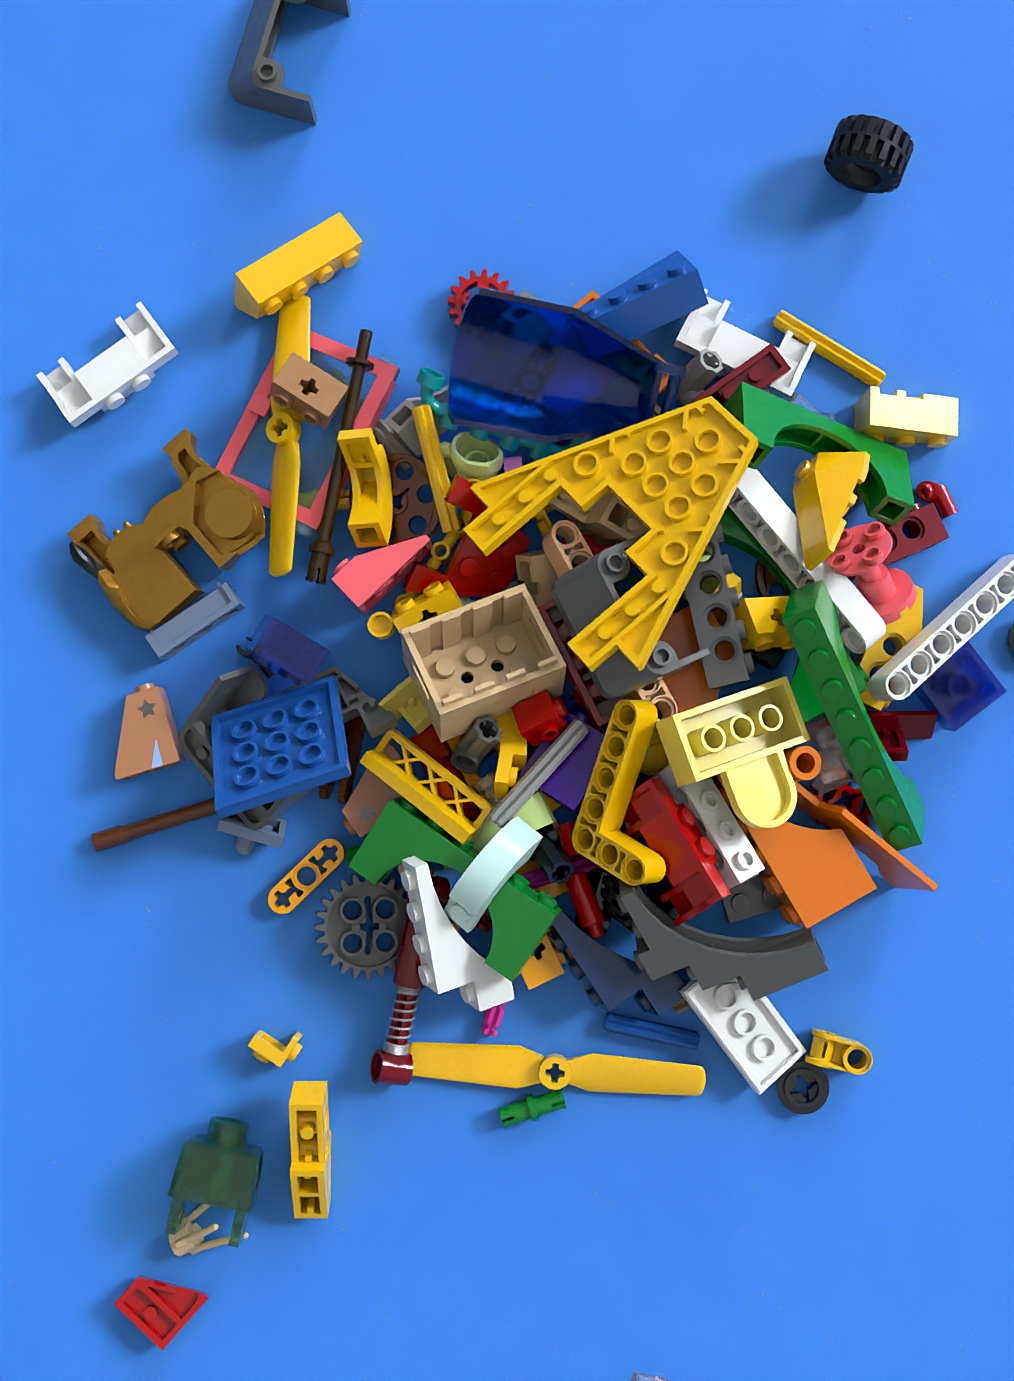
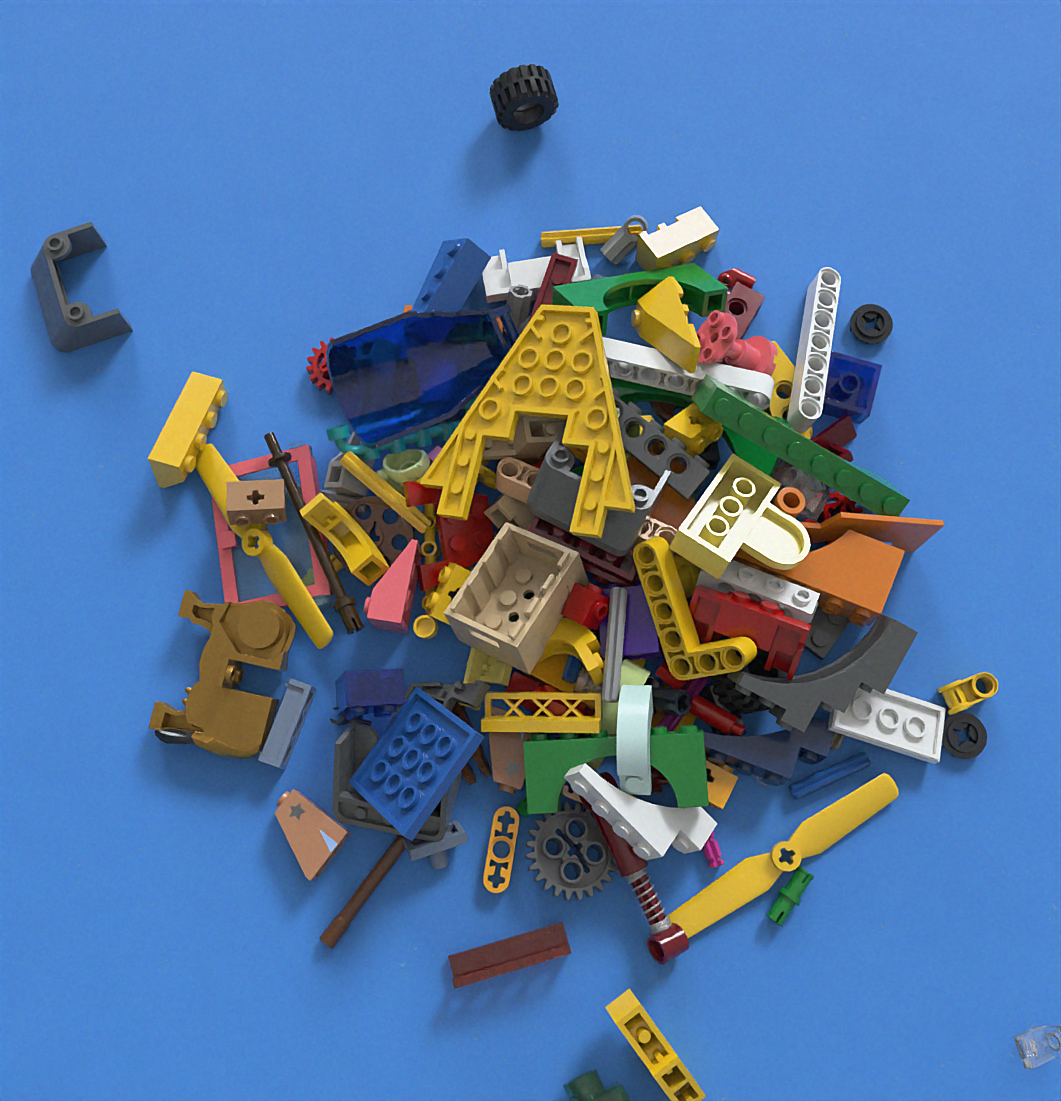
camera: 30 degrees left, 10 degrees down
(112, 374) = (104, 591): white bracket -> none
(246, 973) = (509, 954): none -> clear red fence
(269, 1049) = (567, 1000): yellow bracket -> none
(475, 744) = (554, 659): dark grey piece -> none
(856, 377) = (623, 240): none -> light grey piece

